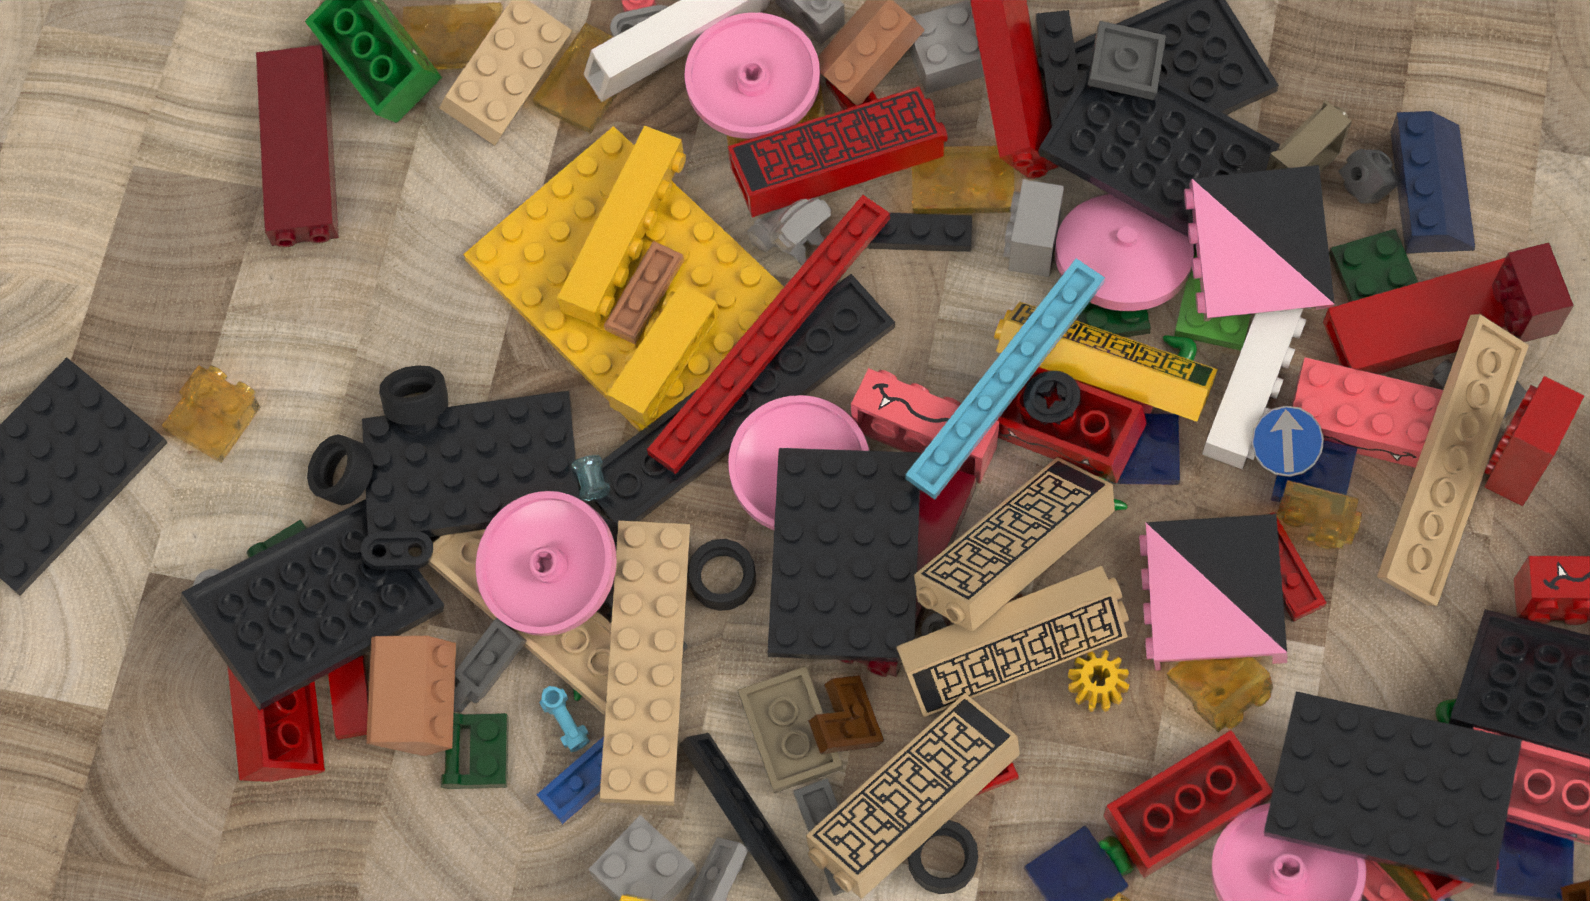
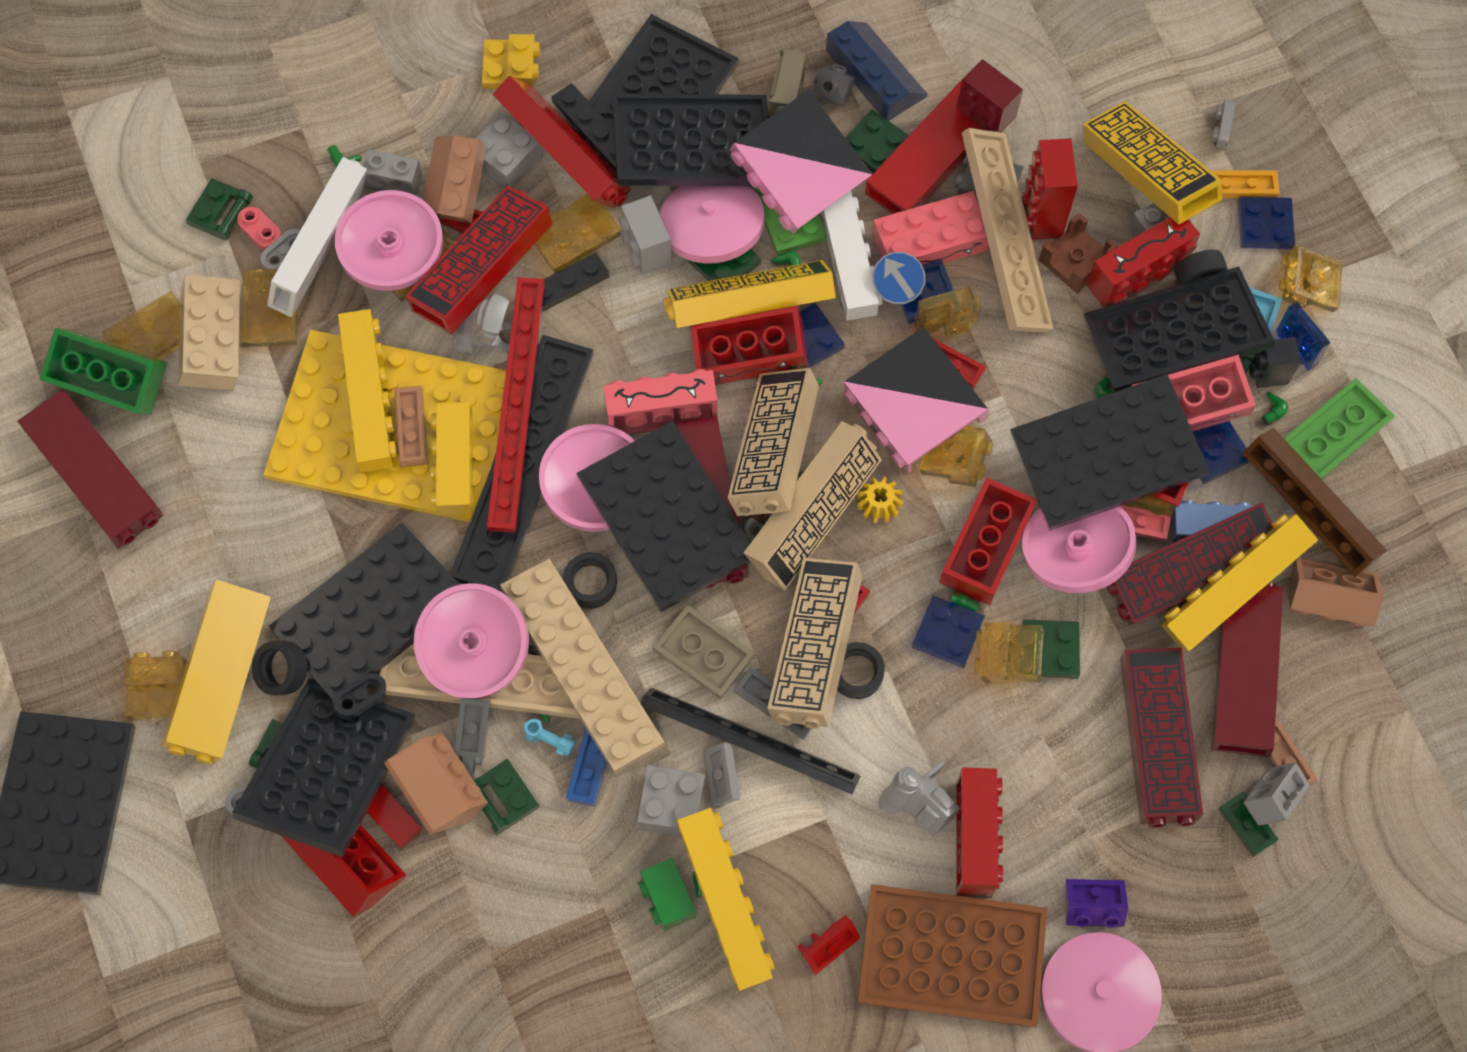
camera: 40 degrees left, 0 degrees up
(274, 435) = (215, 672): none -> yellow brick
(417, 408) = (304, 596): black tyre -> none
(590, 477) = (460, 568): clear light blue bush -> none
(853, 720) = (742, 621): reddish brown plate -> none
(1004, 379) = (699, 339): medium azure plate -> none
(1043, 386) = (724, 331): black gear -> none
(1126, 60) = (636, 92): dark grey plate -> none
(1521, 531) = (1074, 254): none -> copper panel

